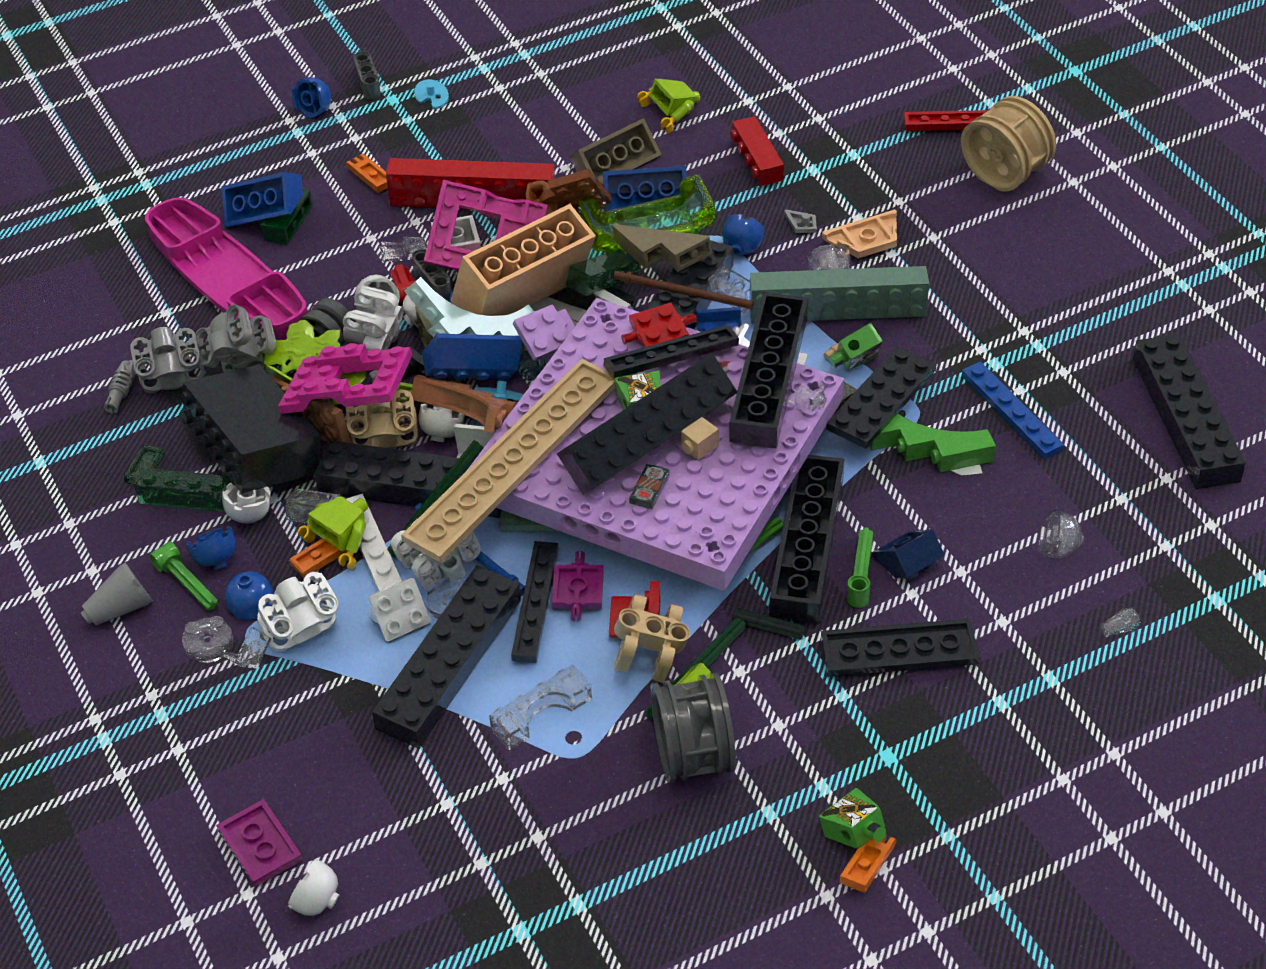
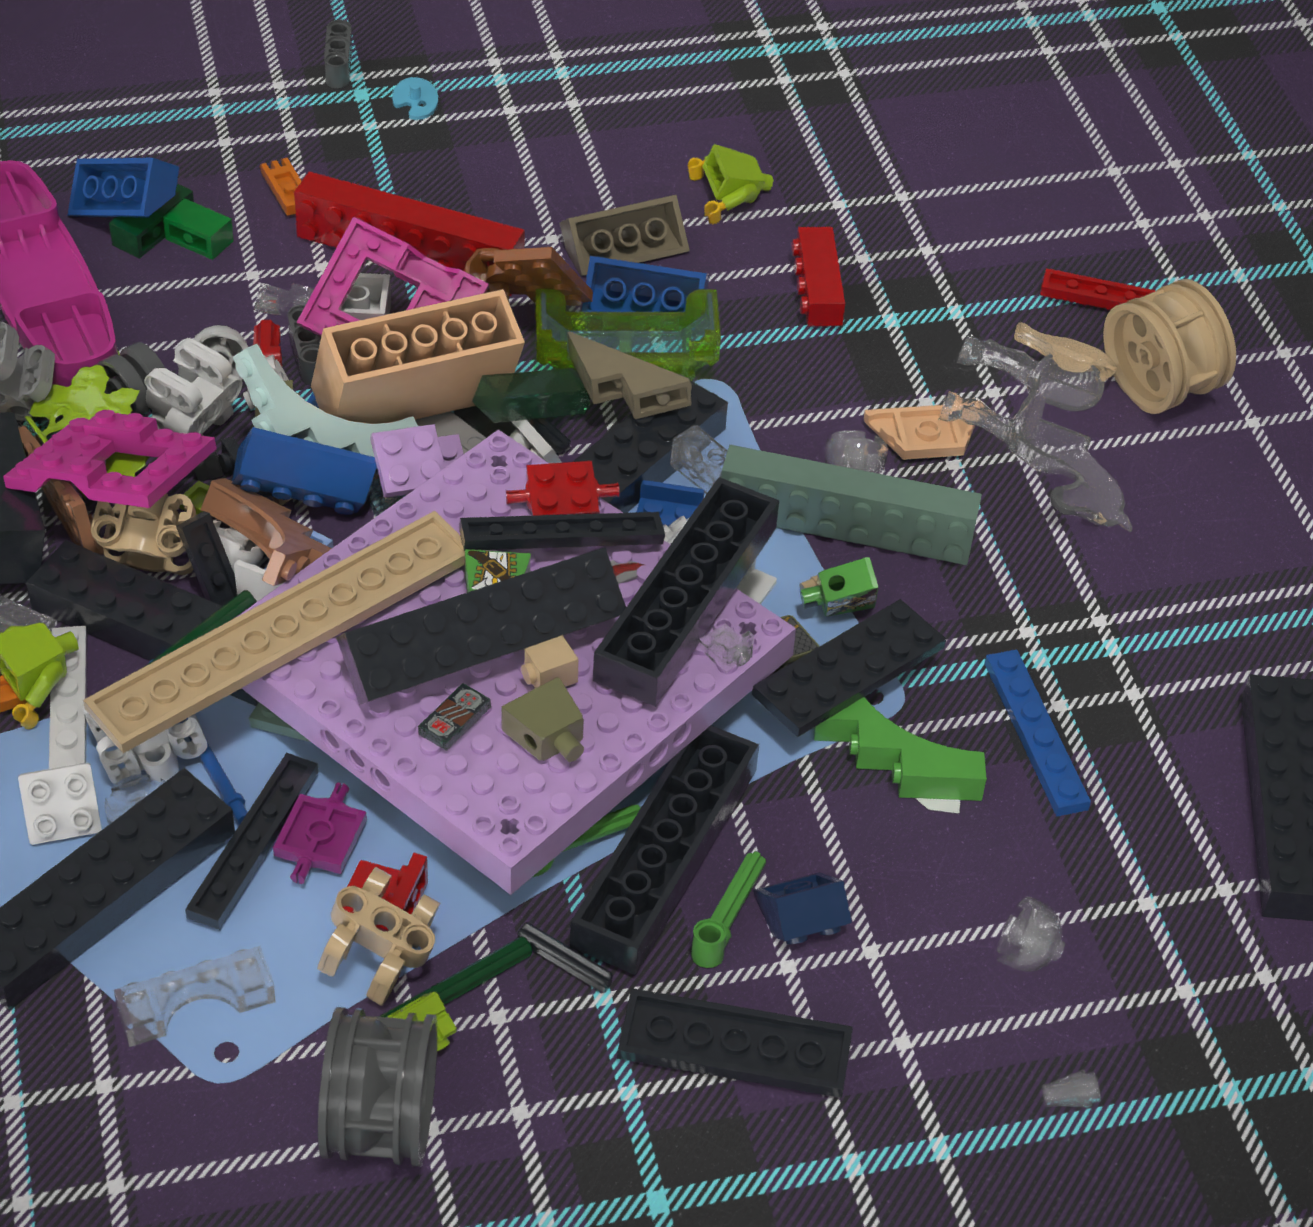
camera: 10 degrees right, 0 degrees up
(311, 96) = (251, 66): blue cylinder -> none
(322, 215) = (198, 229): none -> green brick
(433, 428) = (208, 558): none -> black plate
(501, 392) = (324, 530): medium azure piece -> none
(630, 278) = (564, 413): reddish brown bar -> none
(712, 474) = (545, 722): none -> olive torso
(742, 234) = (749, 389): blue cylinder -> none
(801, 221) = (844, 389): light grey piece -> none
(949, 181) = (1067, 378): none -> clear animal

